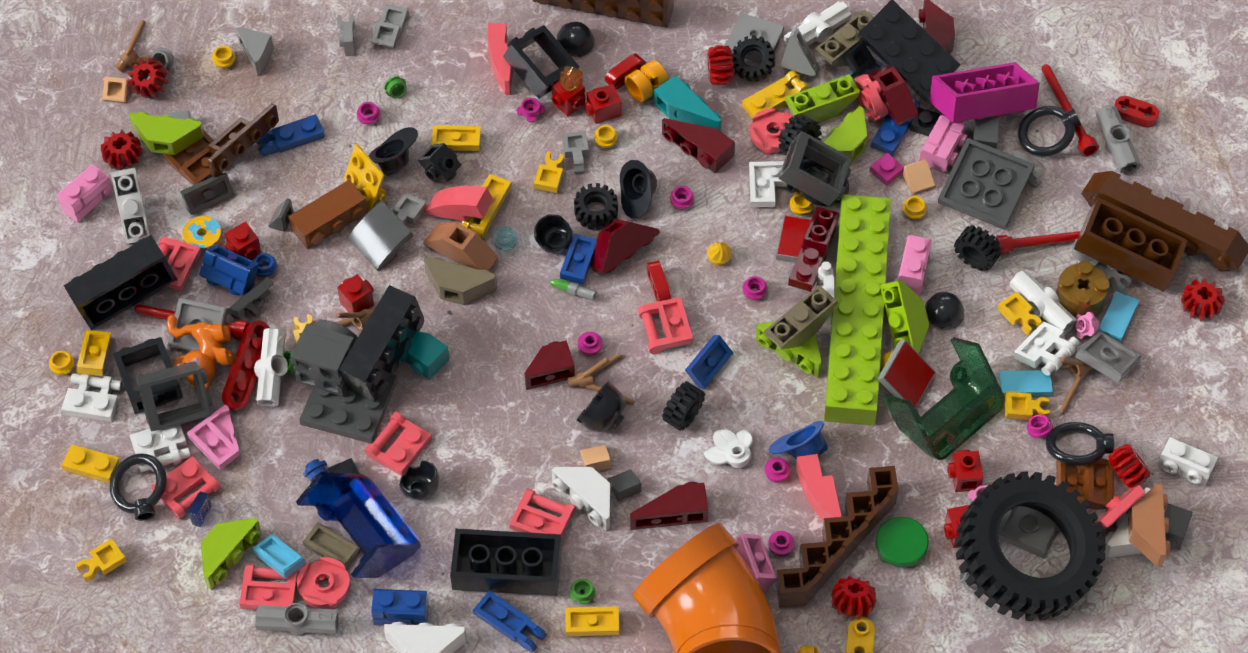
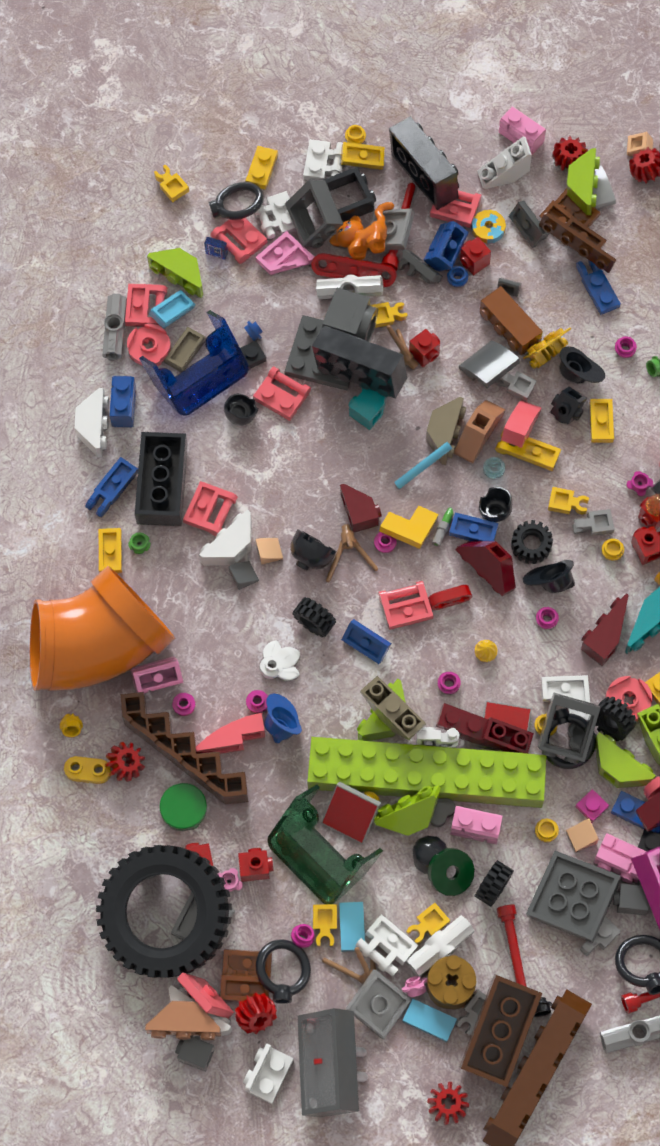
camera: 90 degrees right, 10 degrees up
(503, 298) = (424, 464): none -> medium azure bar
(579, 315) = (410, 531): none -> yellow tile
(676, 507) = (219, 618): dark red slope -> none
(966, 287) = (463, 876): none -> dark green tile
(1177, 396) = (329, 1063): none -> piece

